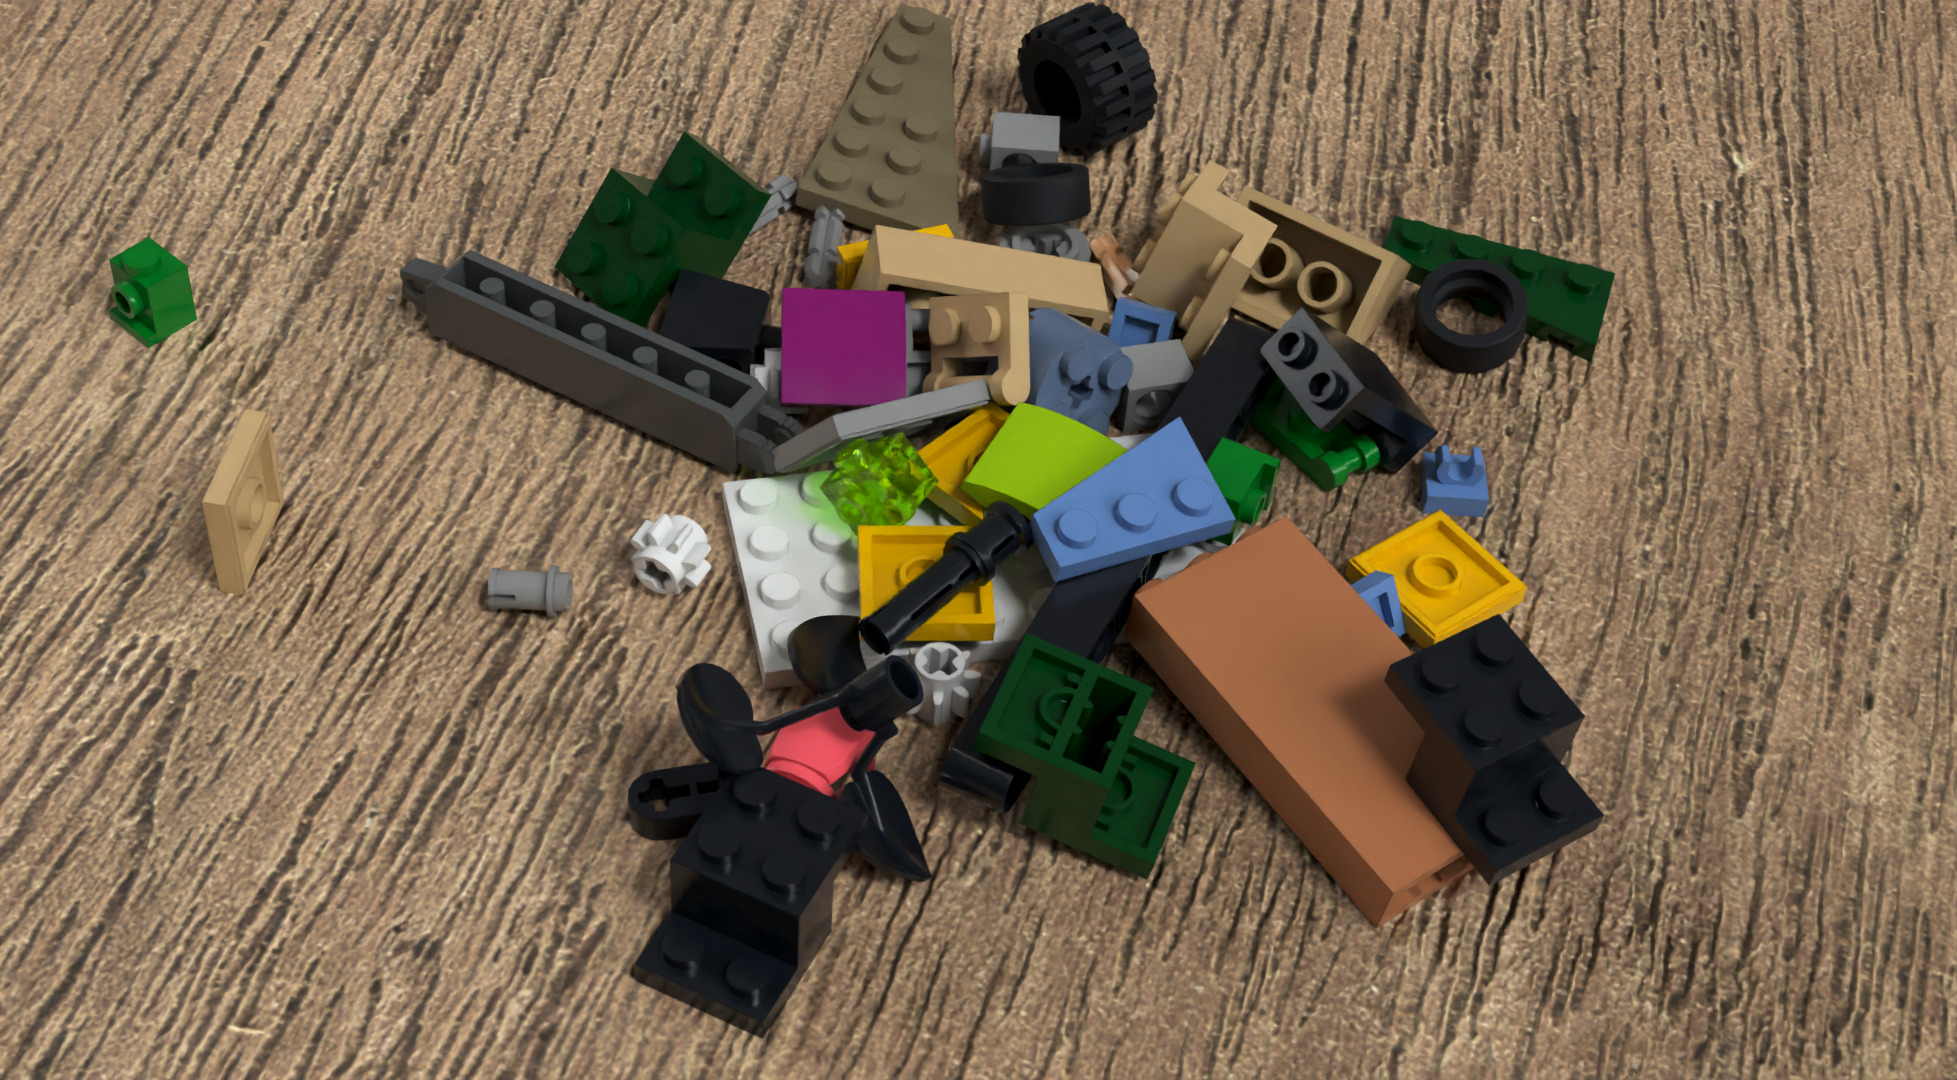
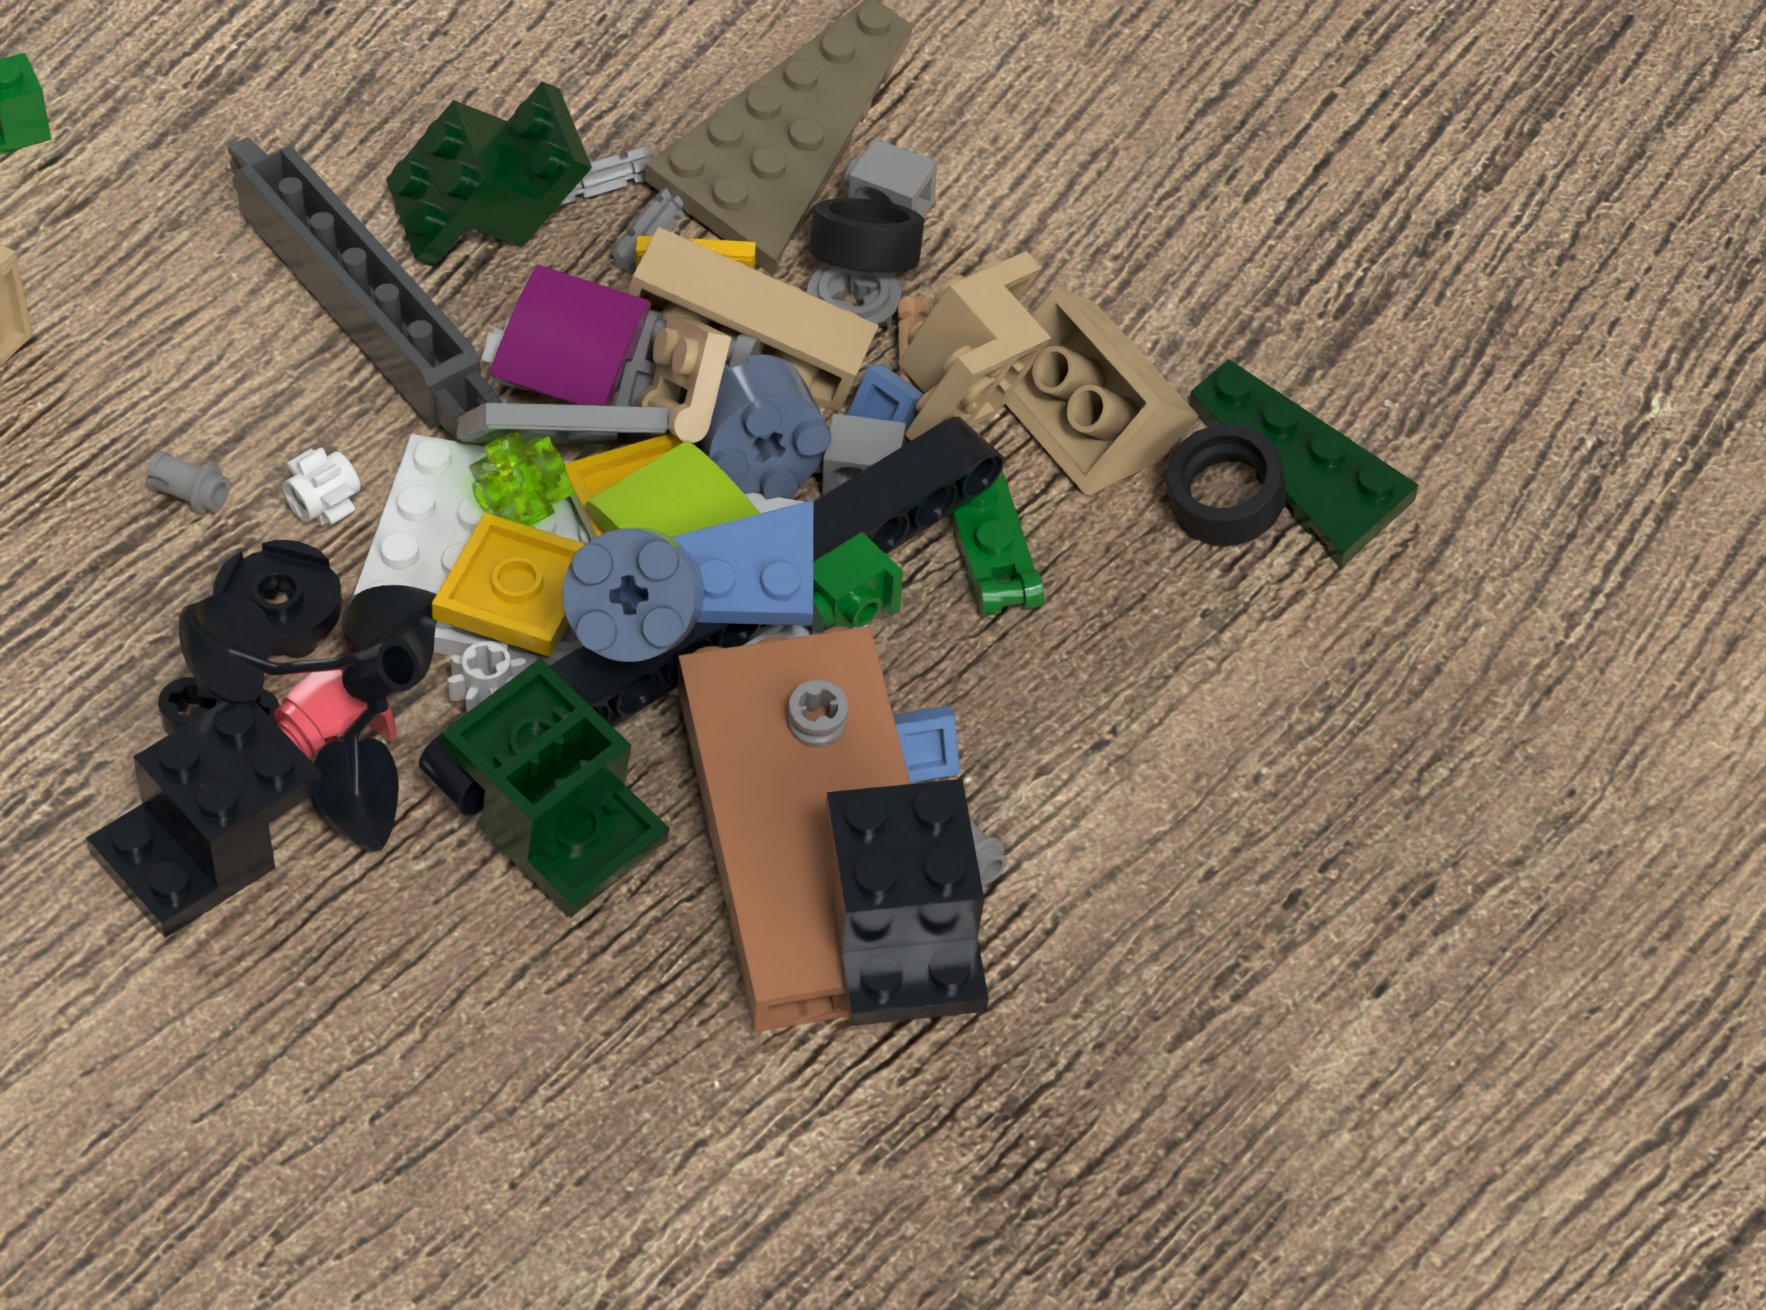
camera: 25 degrees right, 5 degrees up
(654, 657) = (312, 589): none -> black plate
(721, 320) = (479, 279): black torso -> none
(965, 562) = (502, 591): black pin -> none
(1090, 75) = (982, 130): black tyre -> none
(1126, 538) = (609, 624): none -> sand blue brick
(1289, 623) = (811, 697): none -> light grey bush
(1343, 379) = (1035, 513): black panel -> none
(1440, 578) = (1018, 735): yellow plate -> none
(1454, 483) = (1105, 647): medium blue tile -> none

